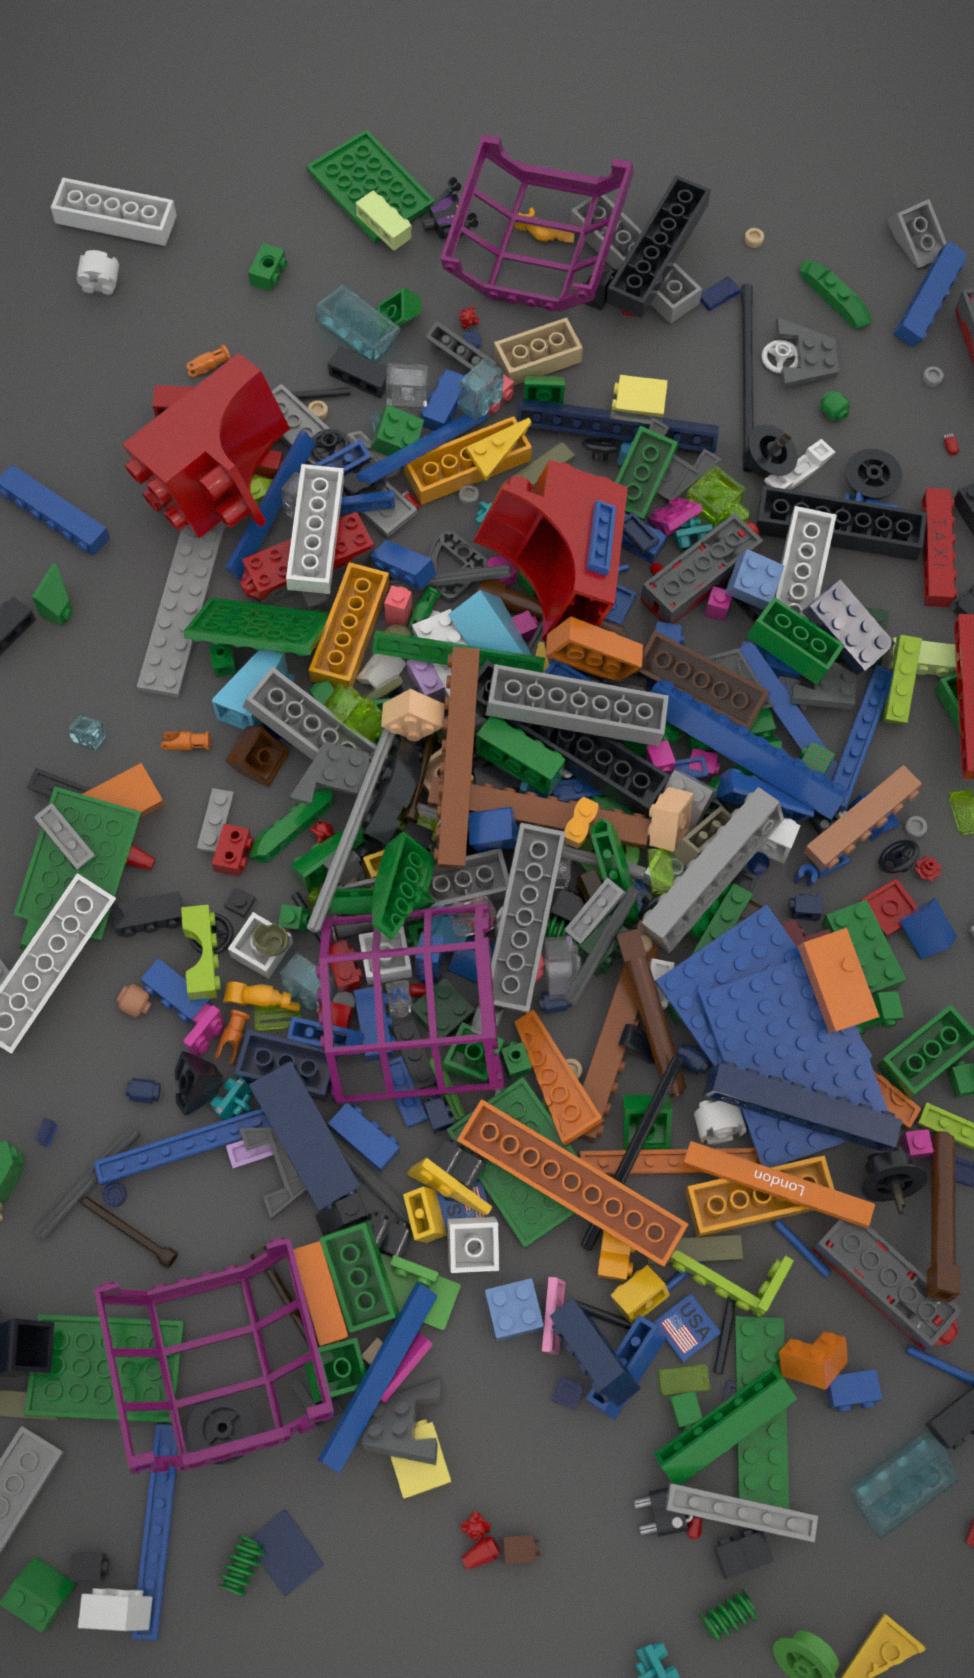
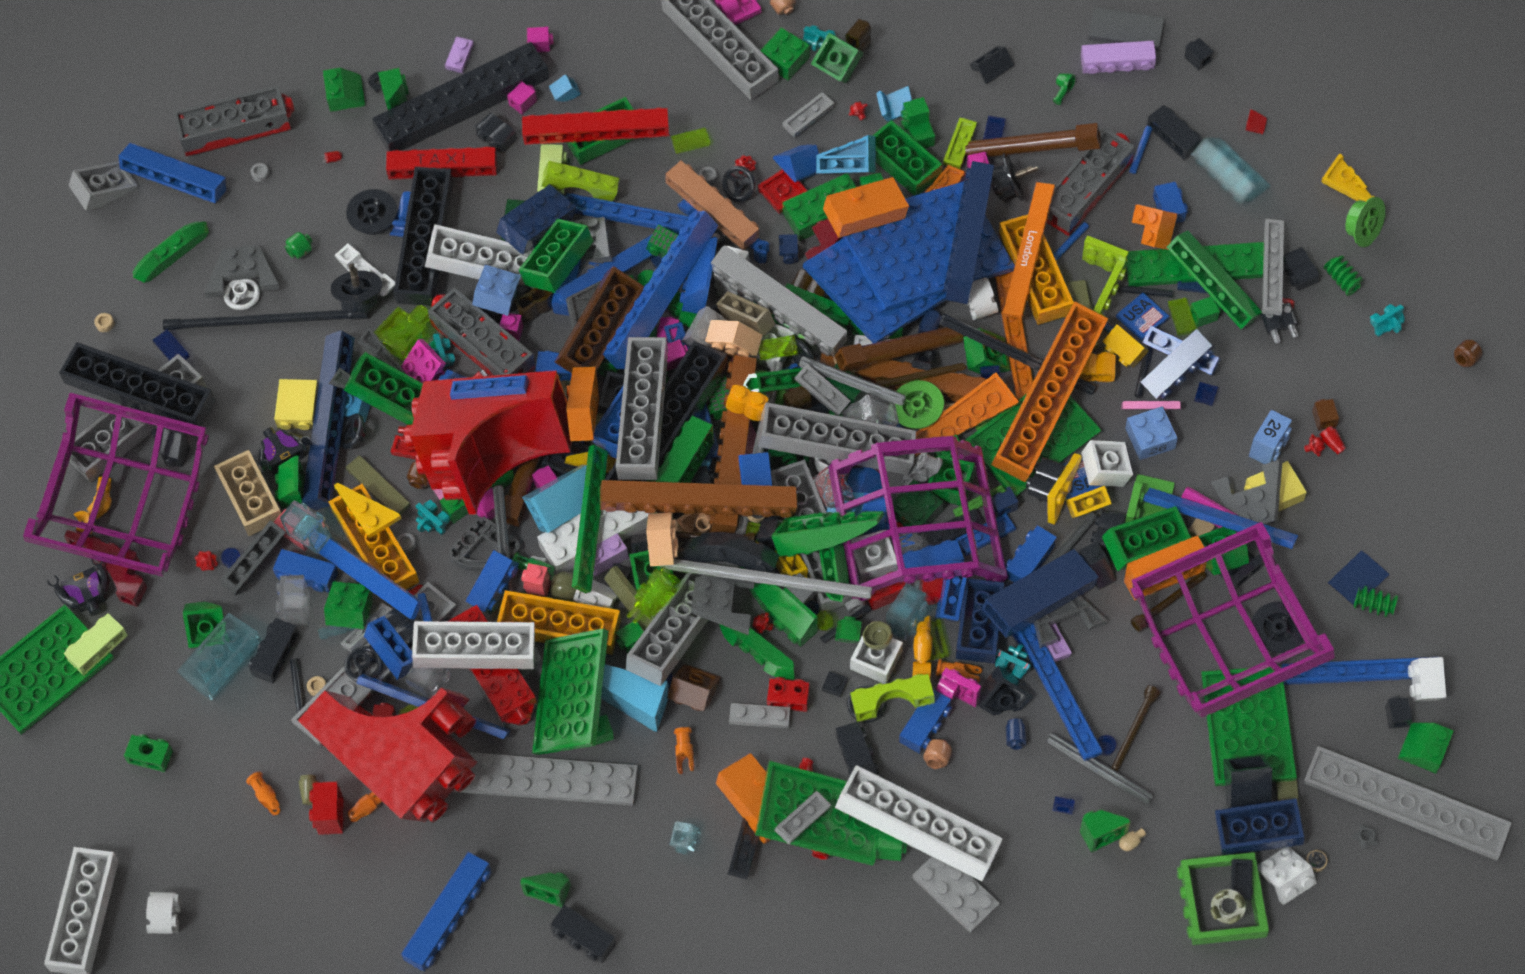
camera: 90 degrees left, 5 degrees down
(466, 248) = (129, 585): none -> dark red arch
(485, 1463) = (1270, 438): none -> medium blue brick
(585, 380) = (279, 448): none -> black torso
(587, 1020) = (922, 404): none -> bright green piece
(607, 990) = (919, 375): none -> dark brown piece
(616, 1121) = (988, 371): none -> clear blue tile
(741, 620) = (533, 303): none -> dark brown brick
(923, 983) = (850, 158): none -> dark azure wedge

